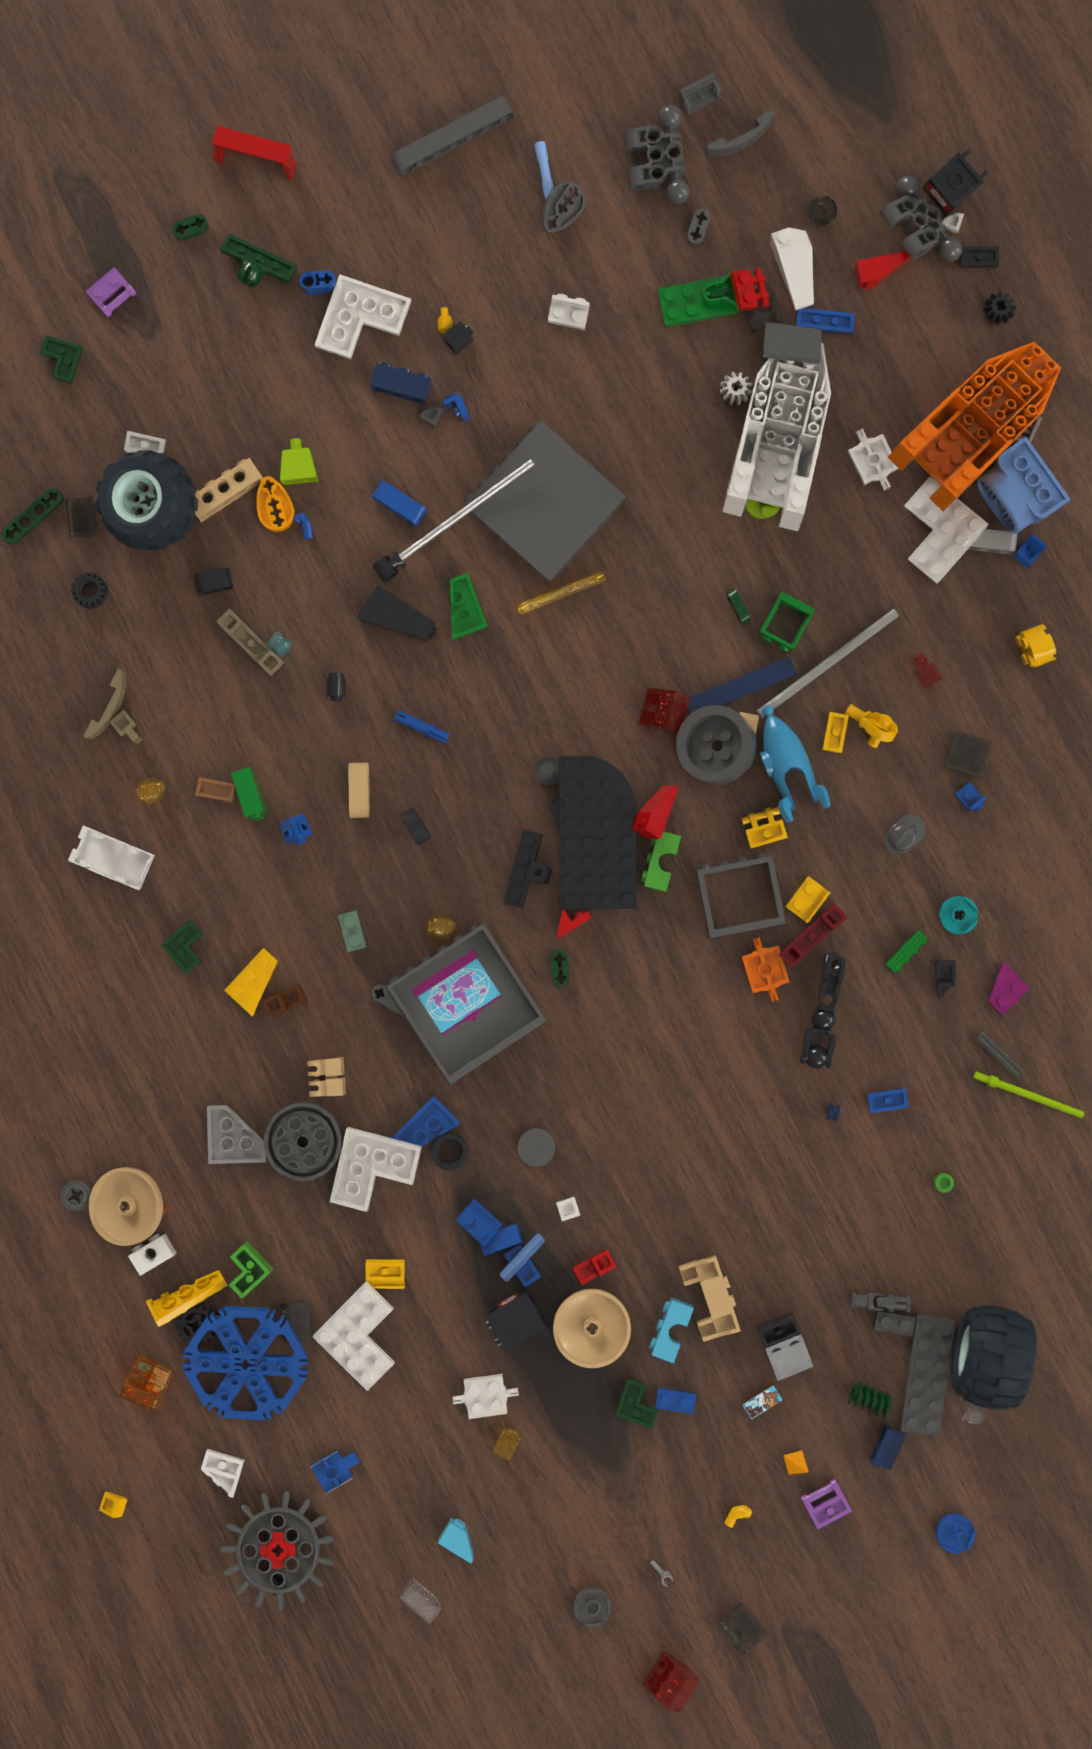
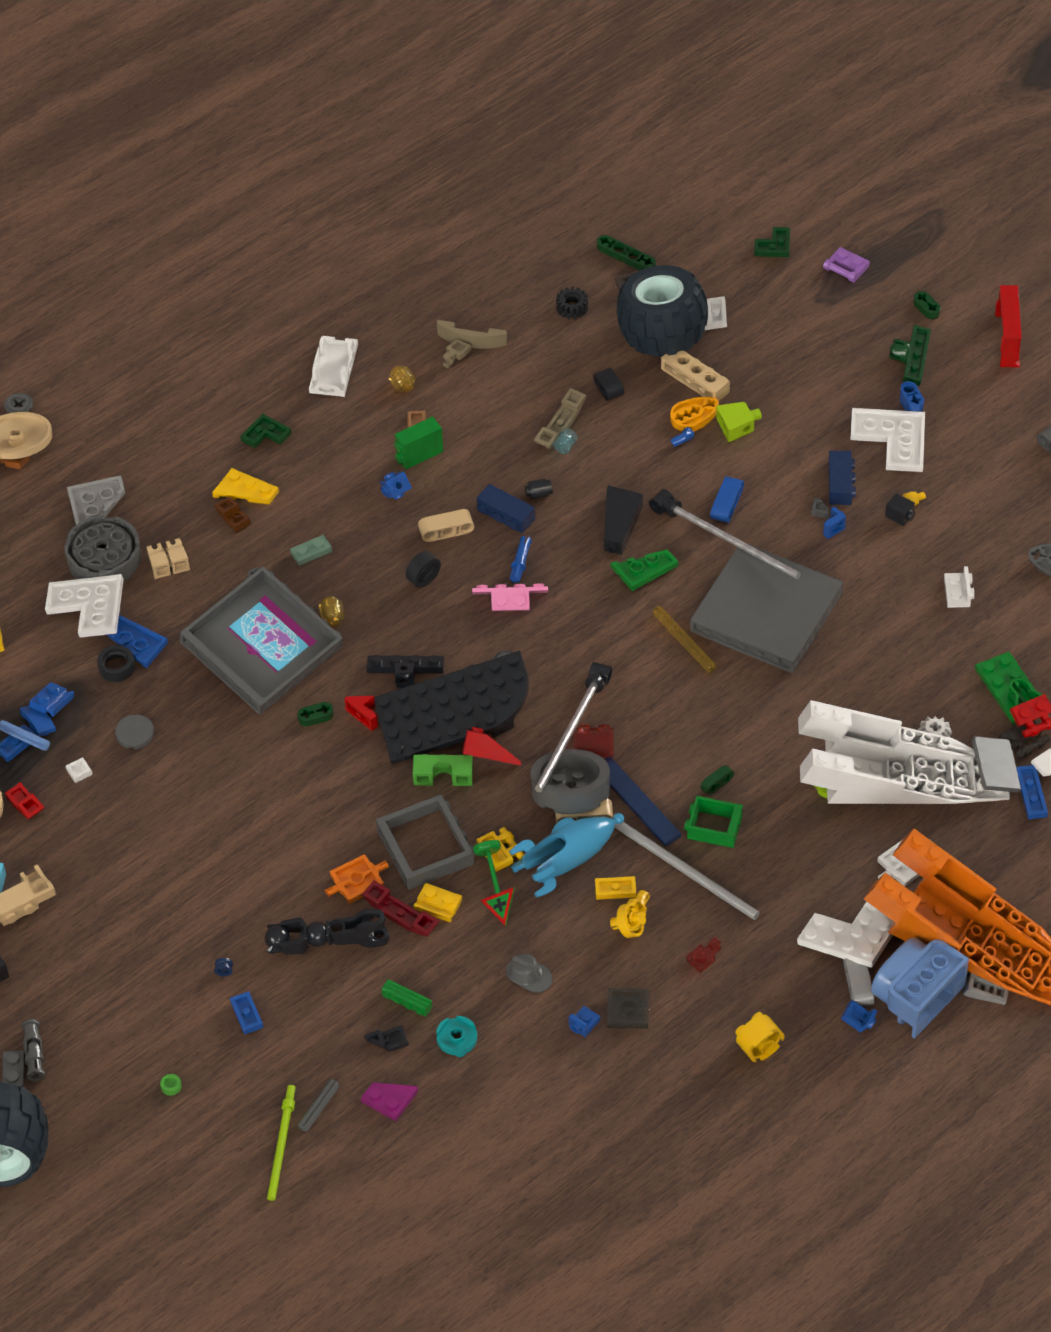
camera: 75 degrees right, 35 degrees down
(354, 726) = (505, 508): none -> dark blue brick
(466, 748) = (510, 598): none -> bright pink bracket
(587, 685) = (598, 677): none -> flat silver piece
(826, 842) = (500, 902): none -> green piece

